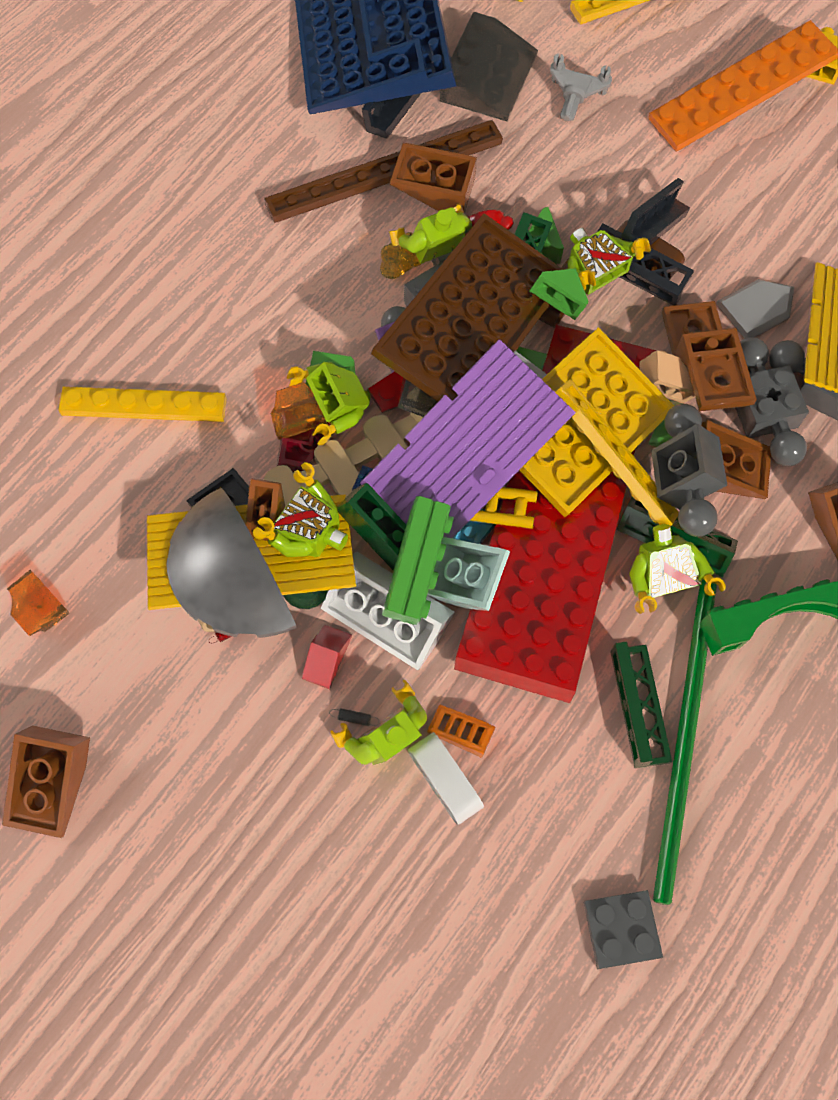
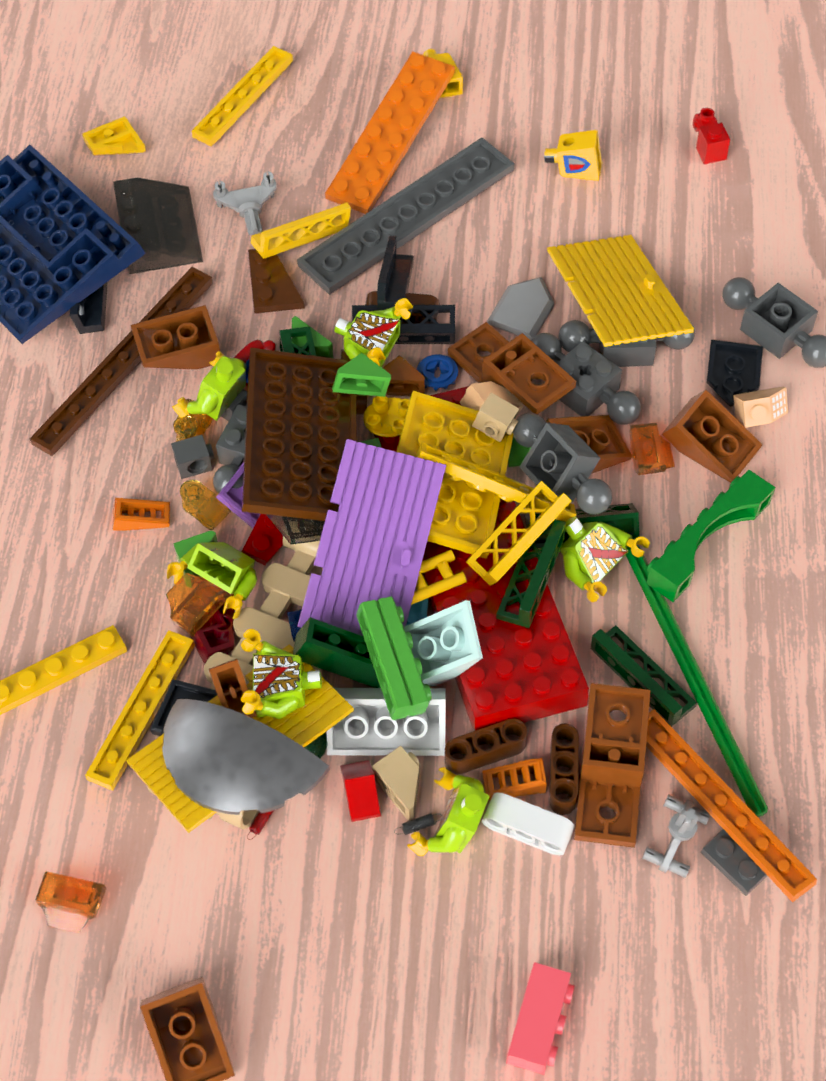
camera: 30 degrees left, 10 degrees down
(187, 482) = (139, 710): none -> yellow plate
(299, 295) = (139, 522): none -> orange slope
(335, 962) = (540, 1019): none -> coral brick
(362, 328) = (202, 504): none -> clear yellow piece
(363, 669) = (399, 779): none -> tan slope
(382, 284) = (192, 456): none -> dark grey brick
(467, 695) = (493, 735): none -> reddish brown beam
(515, 734) = (560, 781): none -> reddish brown beam
(550, 169) = (272, 285): none -> reddish brown wing
(552, 773) = (612, 765): none -> dark orange bracket
(563, 337) = (386, 416): none -> yellow dish
(574, 874) = (682, 828): none -> light grey axle
(598, 561) = (537, 577): none -> dark green fence
(604, 312) = (403, 378): none -> dark orange slope
(606, 135) = (301, 231): none -> yellow fence
(610, 521) = (529, 535): none -> yellow fence
(629, 881) = (728, 809): none -> orange plate
(637, 314) = (447, 368): none -> blue gear
(658, 393) = (496, 417): none -> tan brick
(710, 167) = (405, 215): none -> dark grey plate
(787, 501) = (649, 449): none -> clear orange slope

